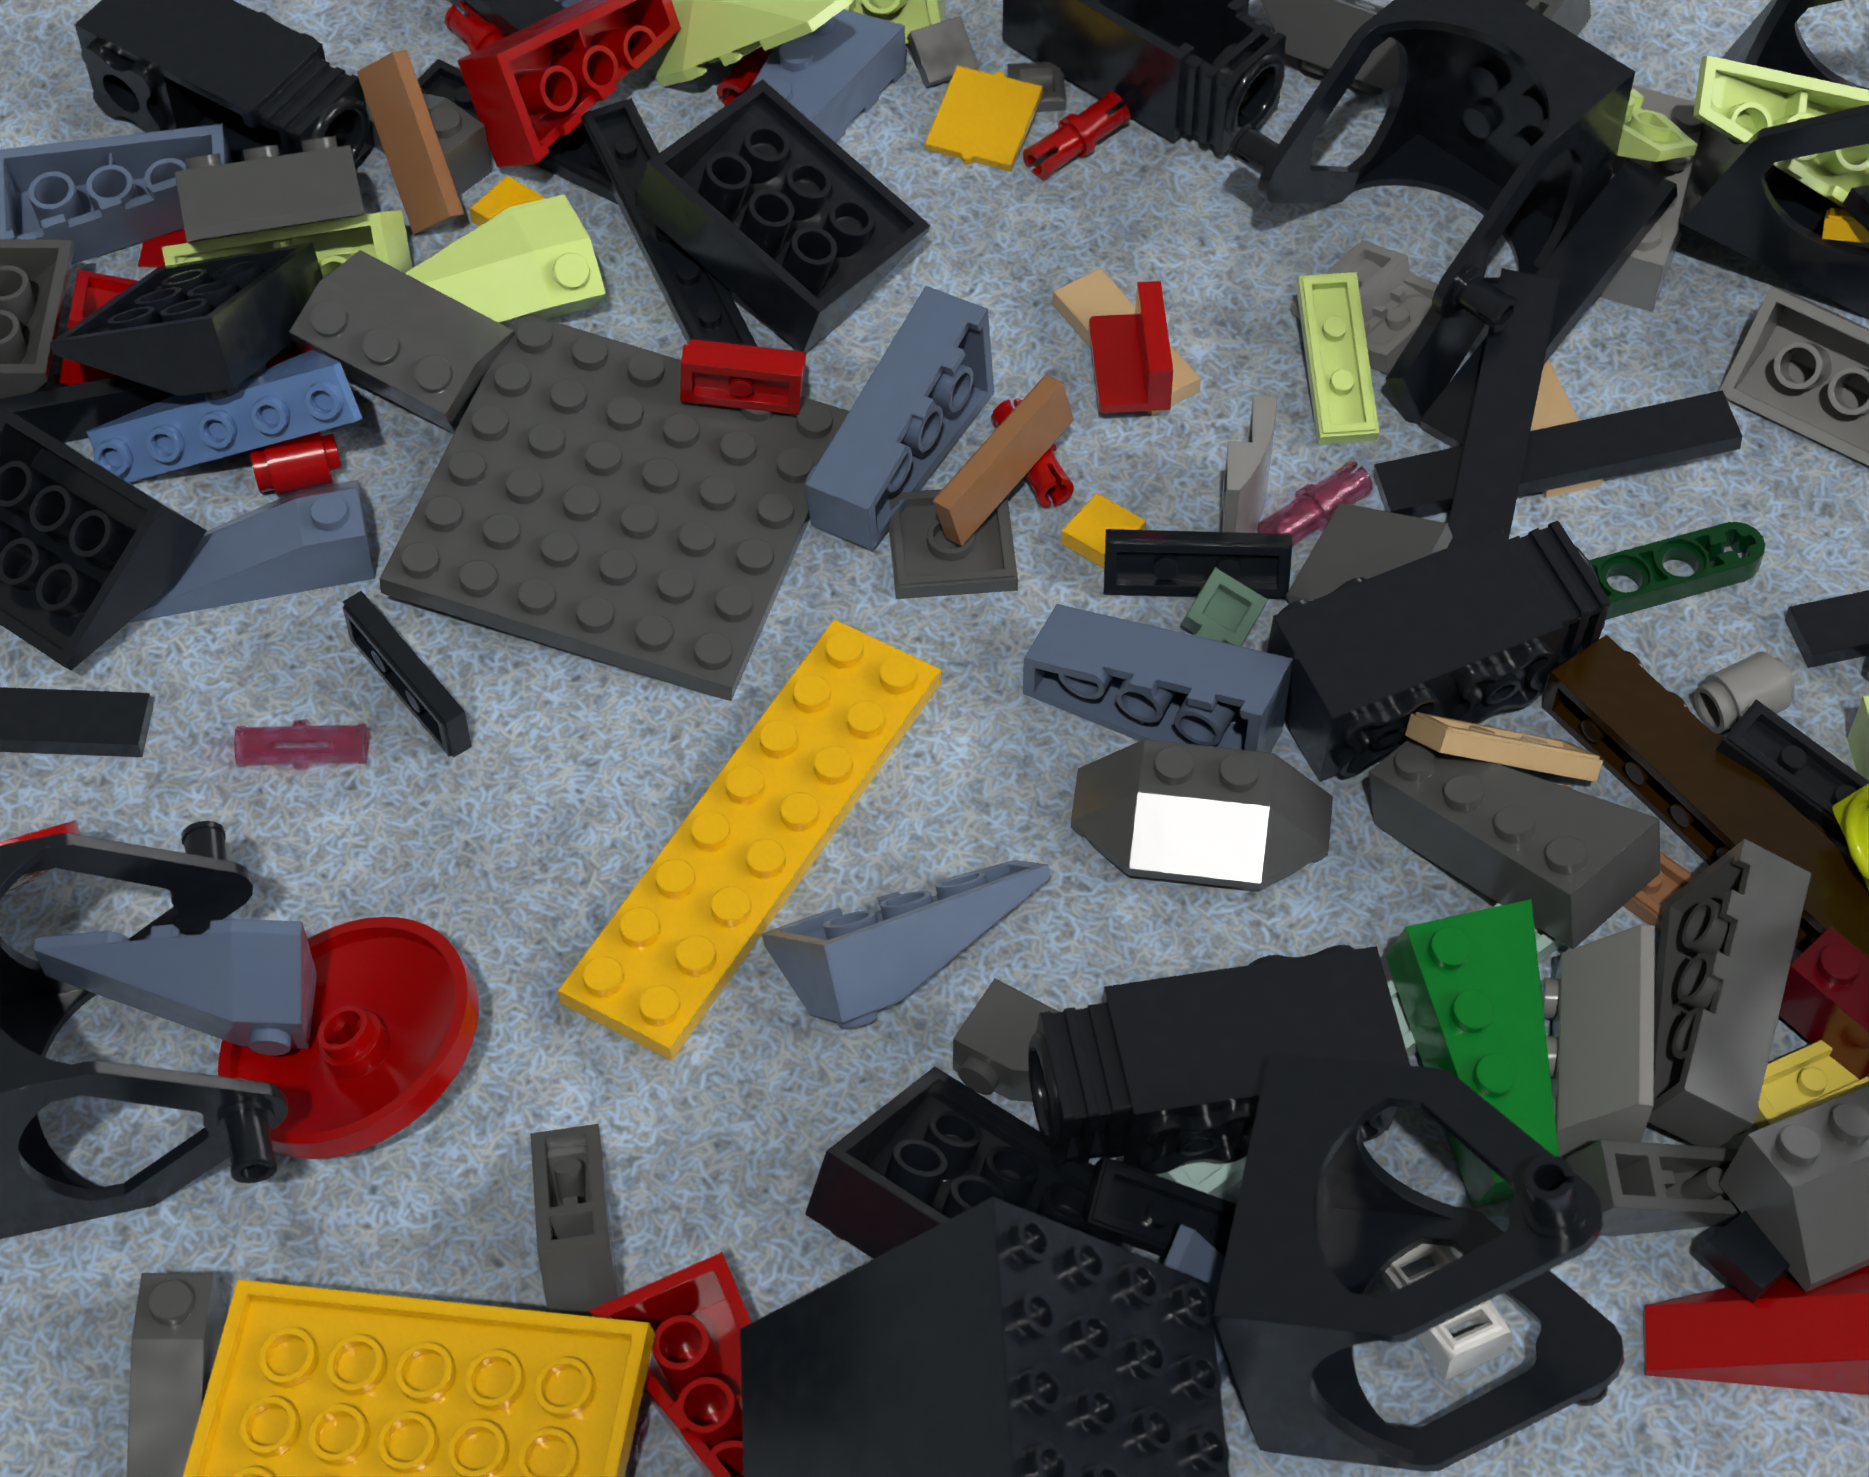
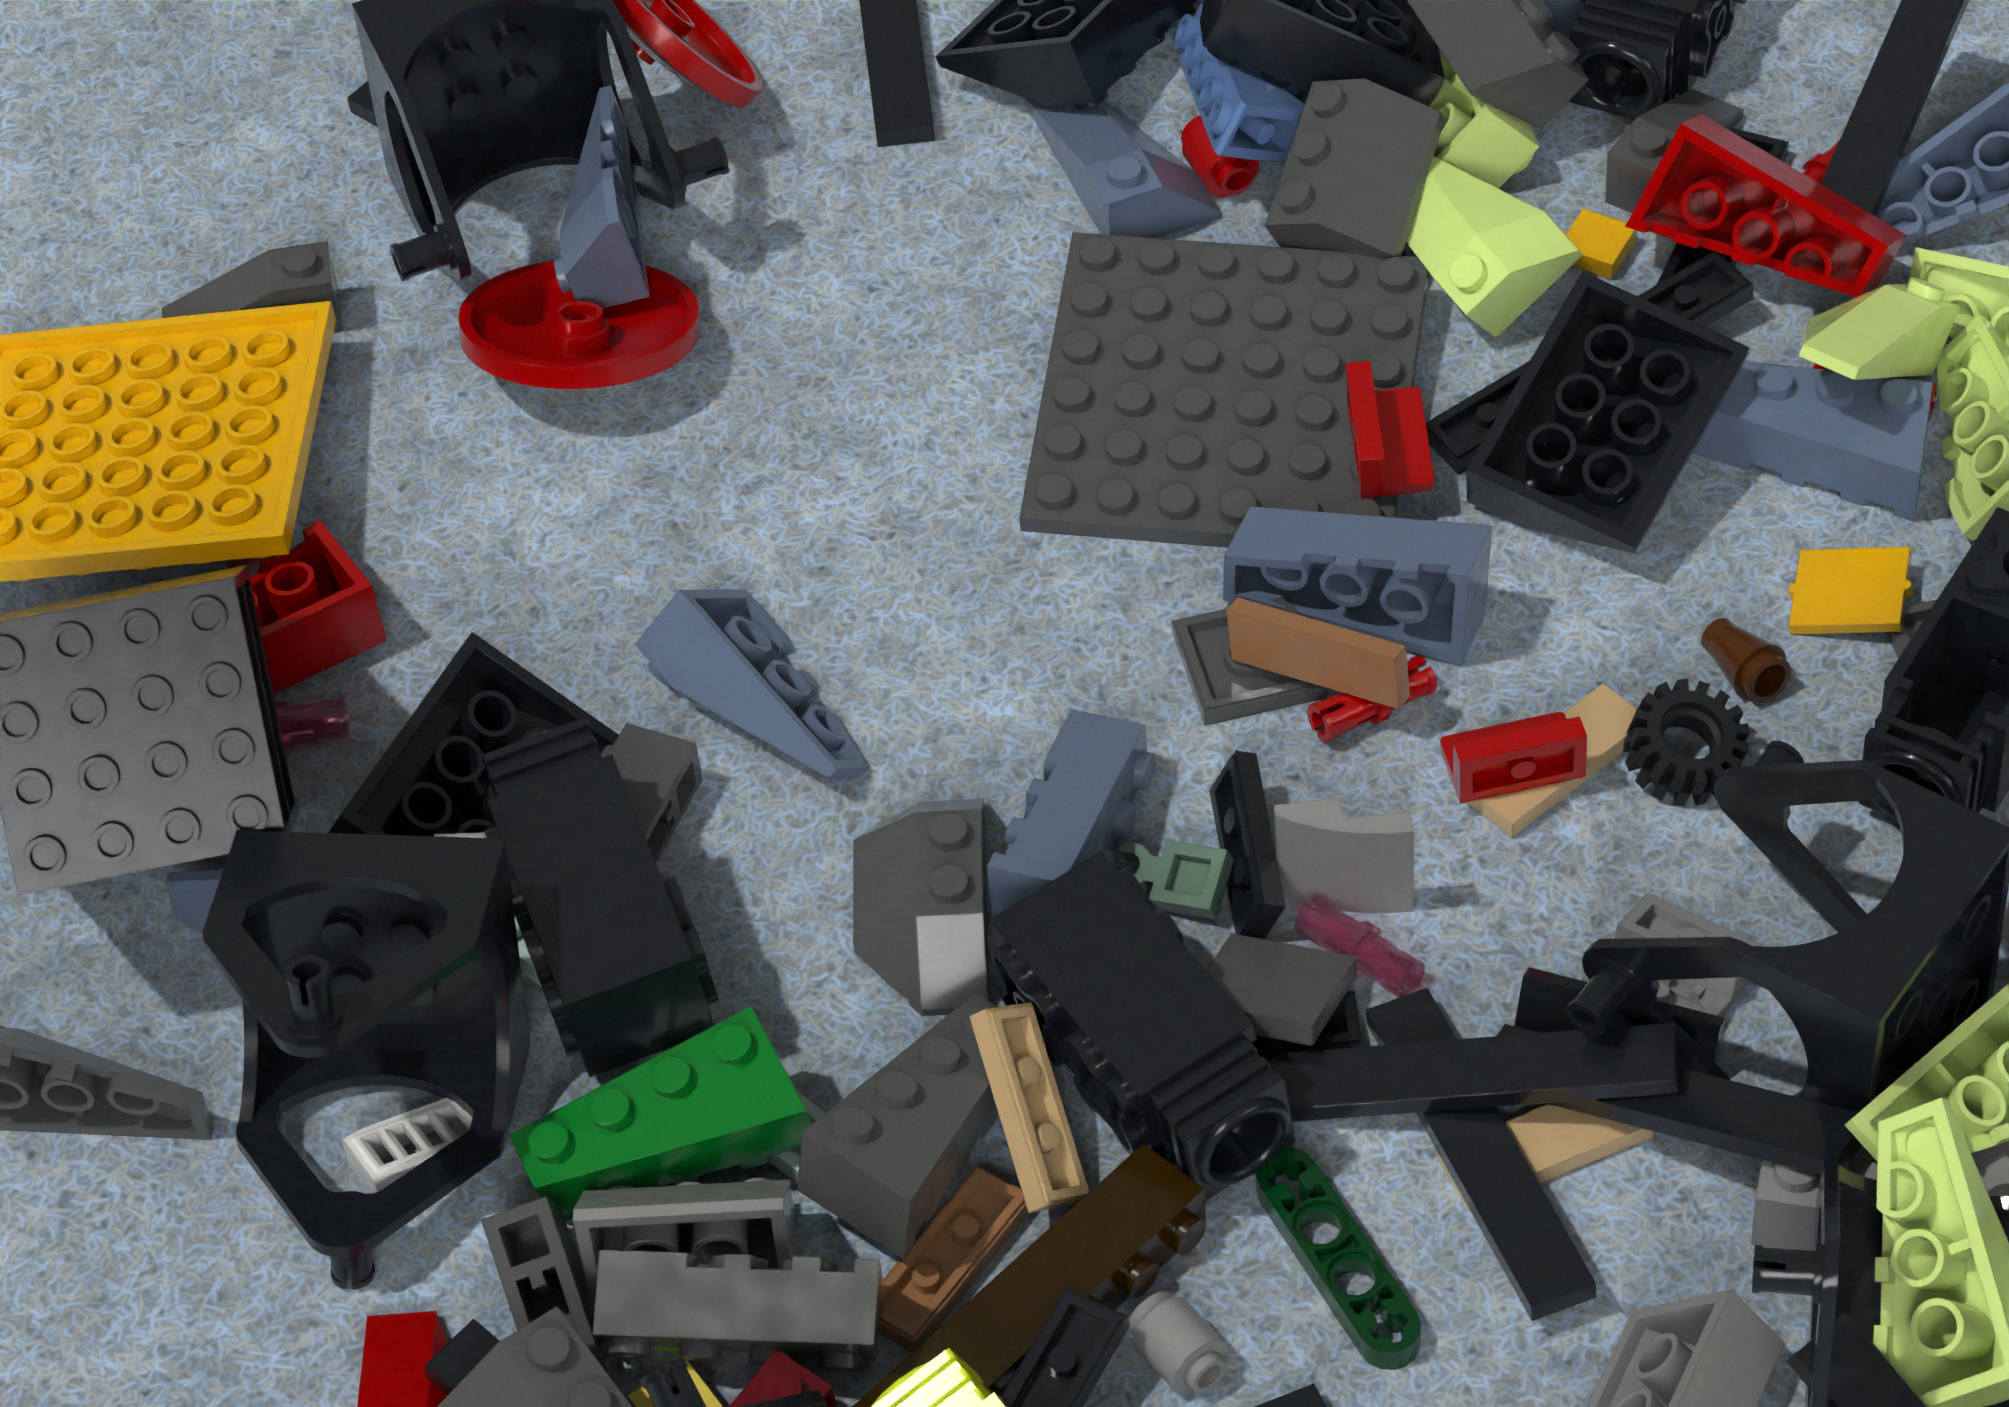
camera: 85 degrees right, 5 degrees down
(257, 744) = (899, 239): clear pink pin -> none
(406, 675) = (983, 285): black tile -> none
(410, 142) = (1614, 124): medium nougat tile -> none
(573, 1220) = (425, 512): dark grey slope -> none
(749, 840) = (868, 571): yellow plate -> none
(940, 49) = (1935, 535): flat silver tile -> none
(1050, 194) = (1748, 662): none -> reddish brown cone
(1076, 135) = (1839, 667): red pin -> none
(1087, 529) = (1291, 772): yellow tile -> none
(1143, 241) = (1691, 711): none -> black tyre
(1337, 358) = (1562, 930): yellowish green tile -> none

